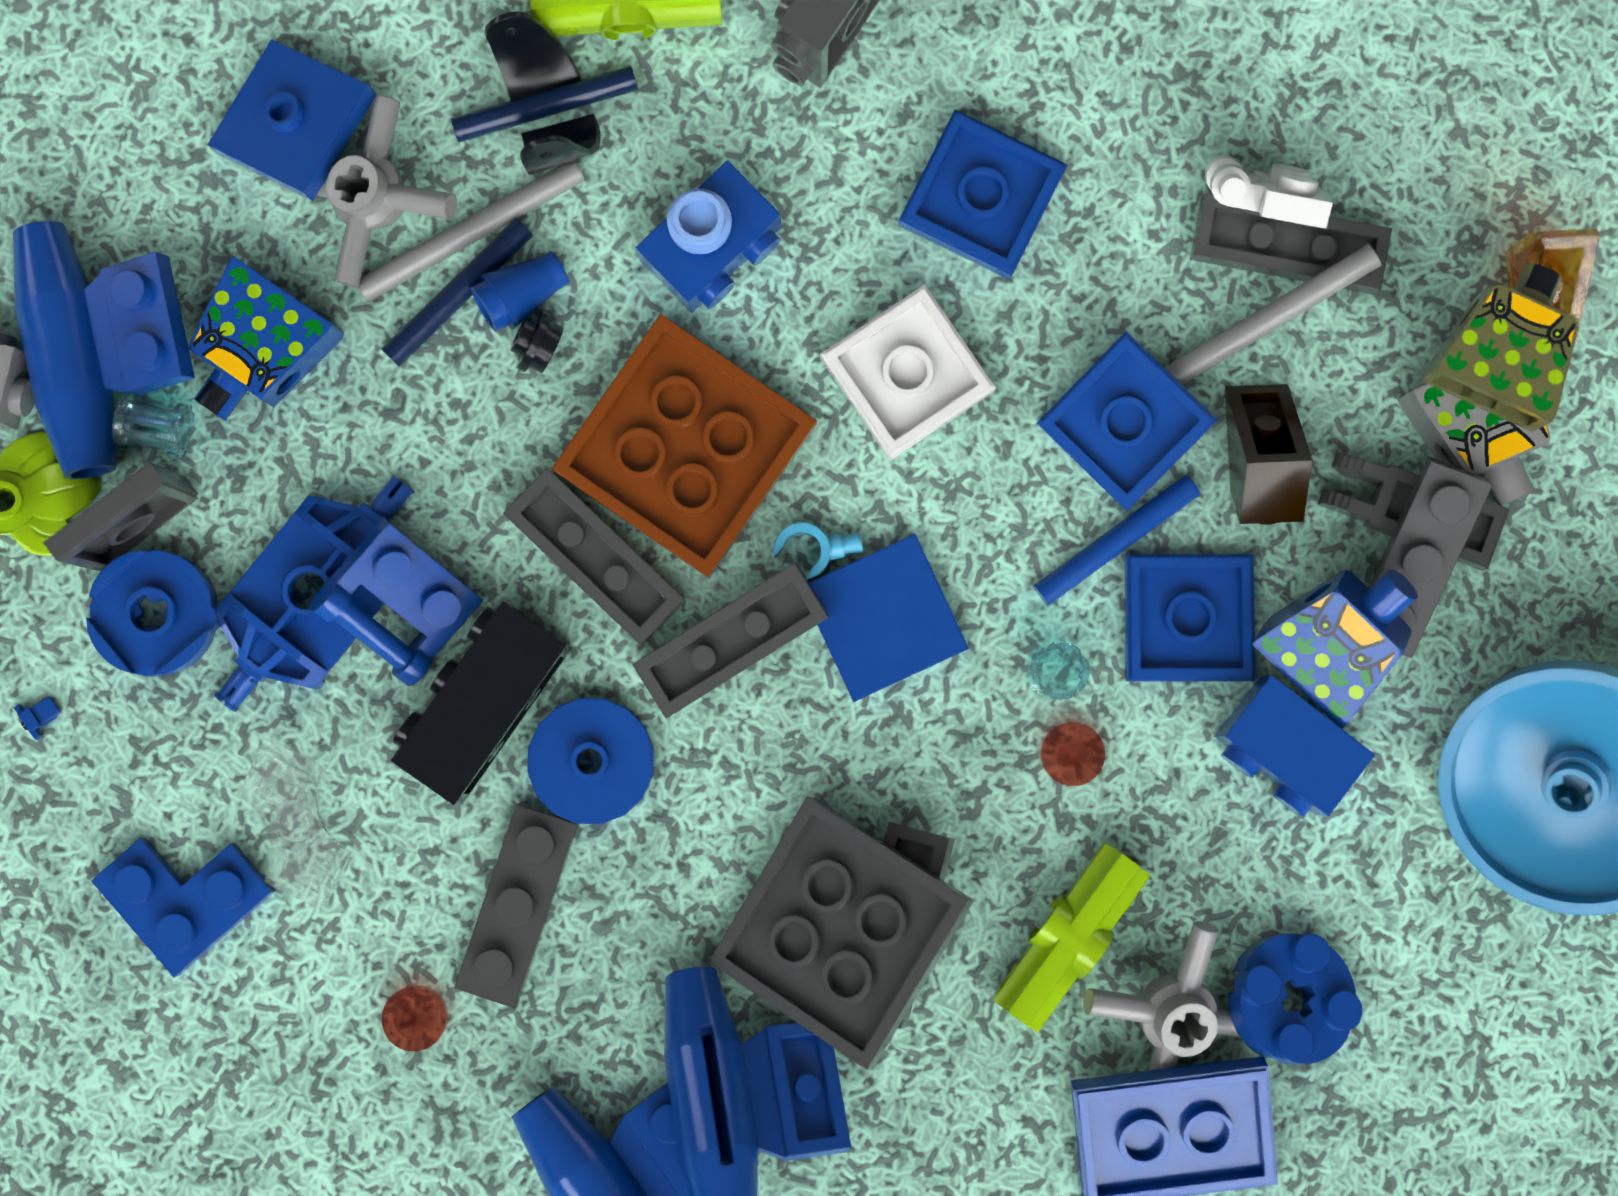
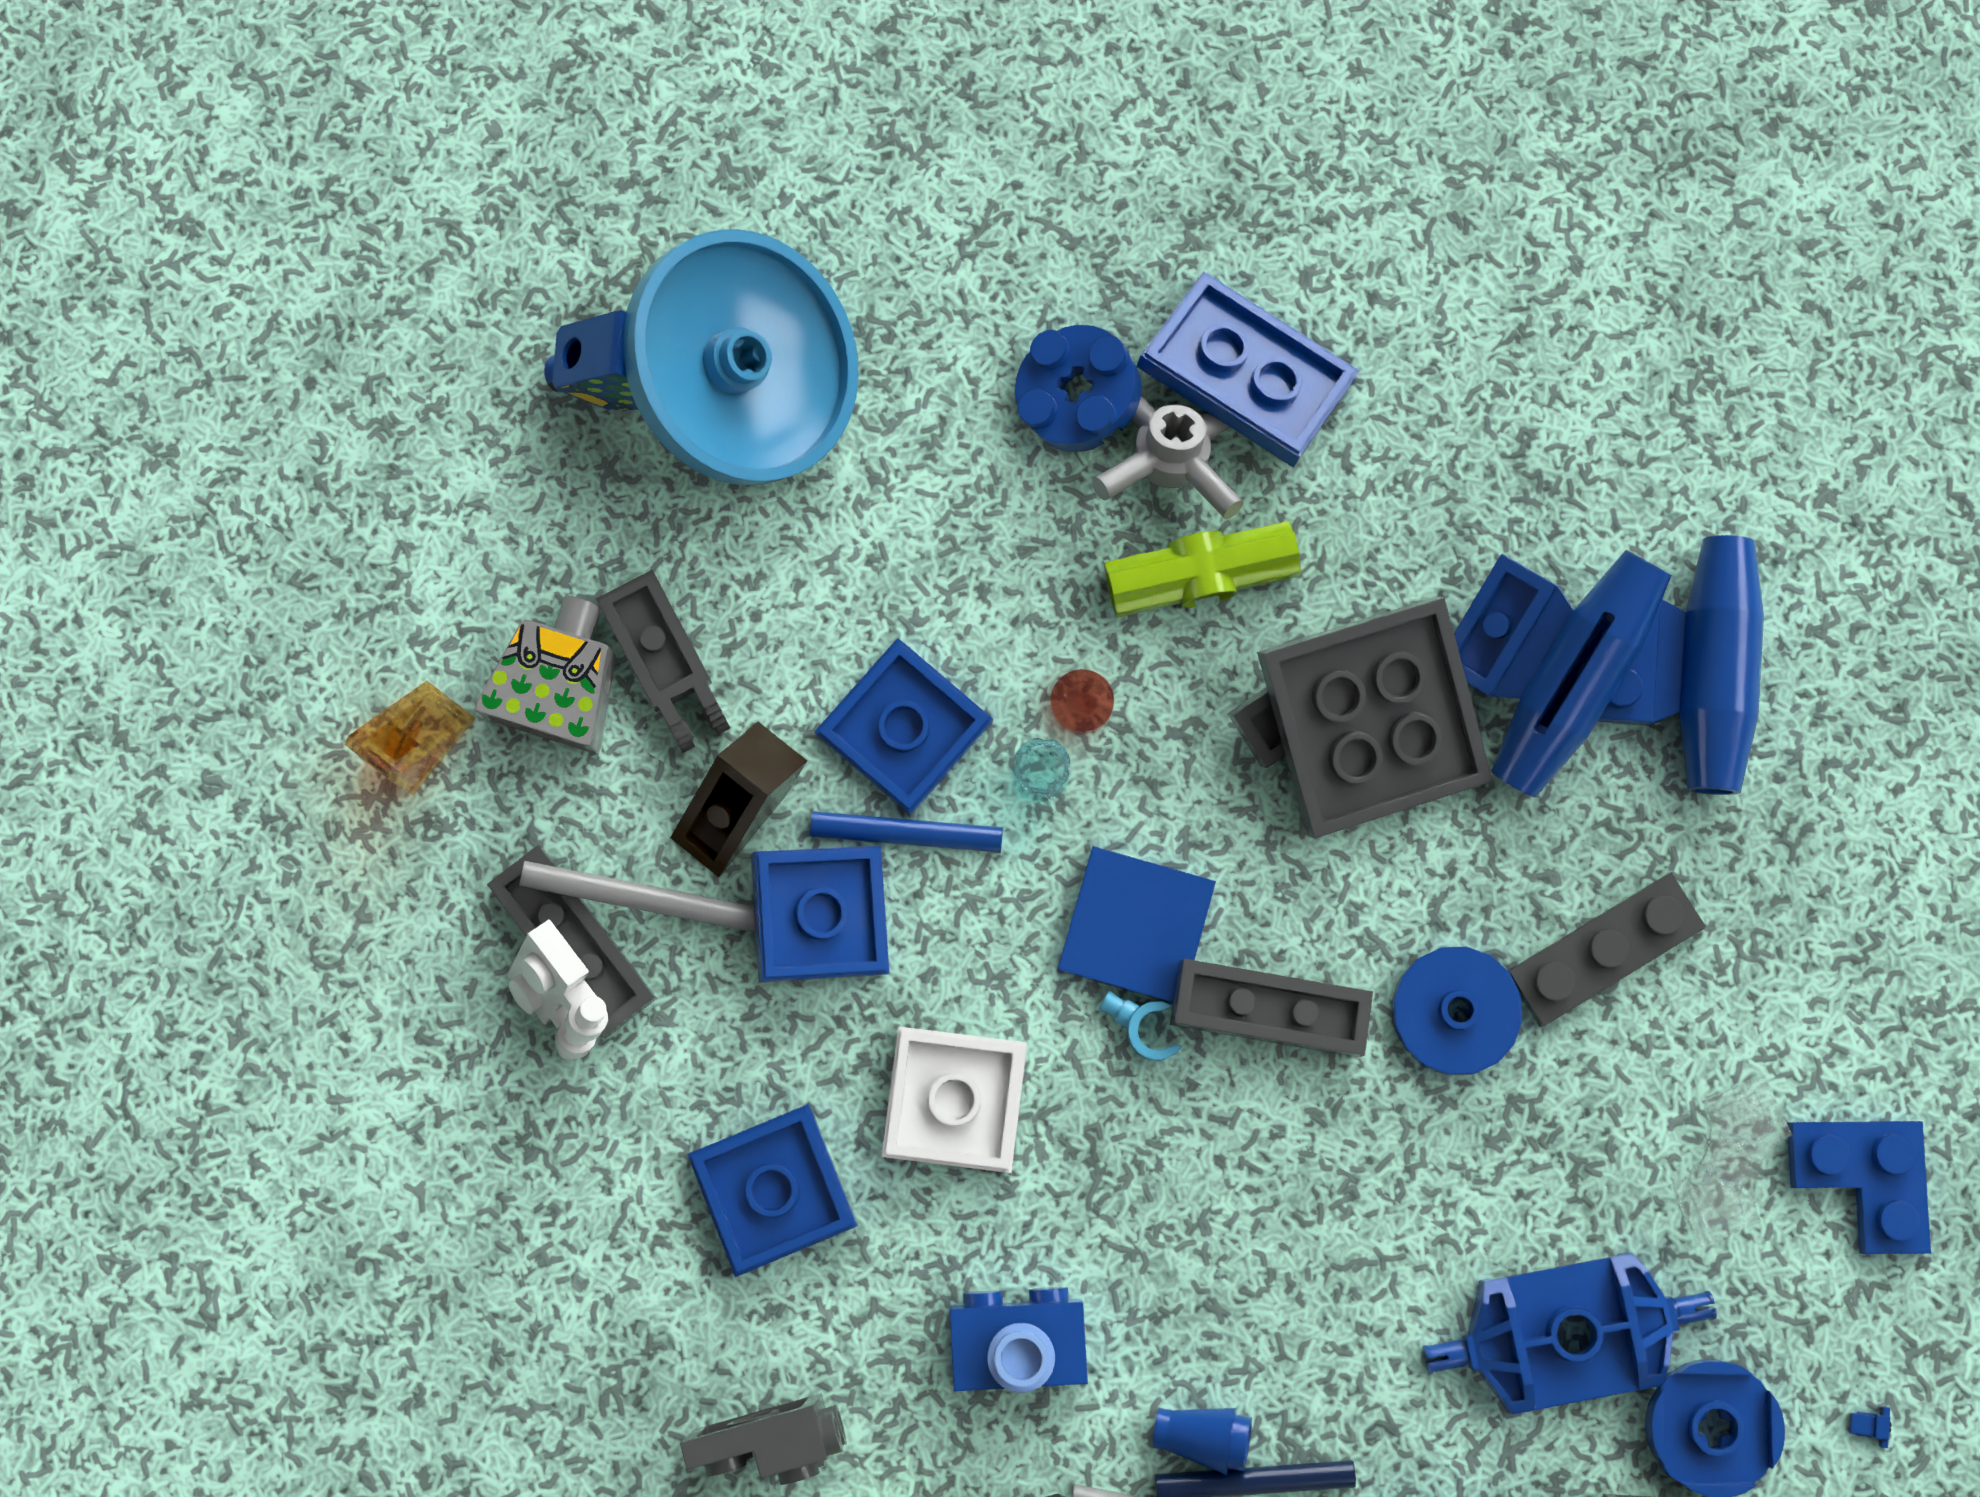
camera: 140 degrees left, 5 degrees down
(411, 586) = (1490, 1269): blue plate -> none
(415, 1018) = (1754, 931): clear red tile -> none
(478, 702) = (1509, 1130): black brick -> none
(536, 342) = (1227, 1380): black plate -> none
(594, 557) = (1323, 1167): dark grey plate -> none
(684, 446) = (1179, 1194): dark orange plate -> none
(1293, 747) = (915, 564): blue piece -> none
(1340, 639) = (813, 610): torso -> none
(1432, 537) = (694, 620): dark grey plate -> none
(1509, 351) = (494, 710): olive torso -> none

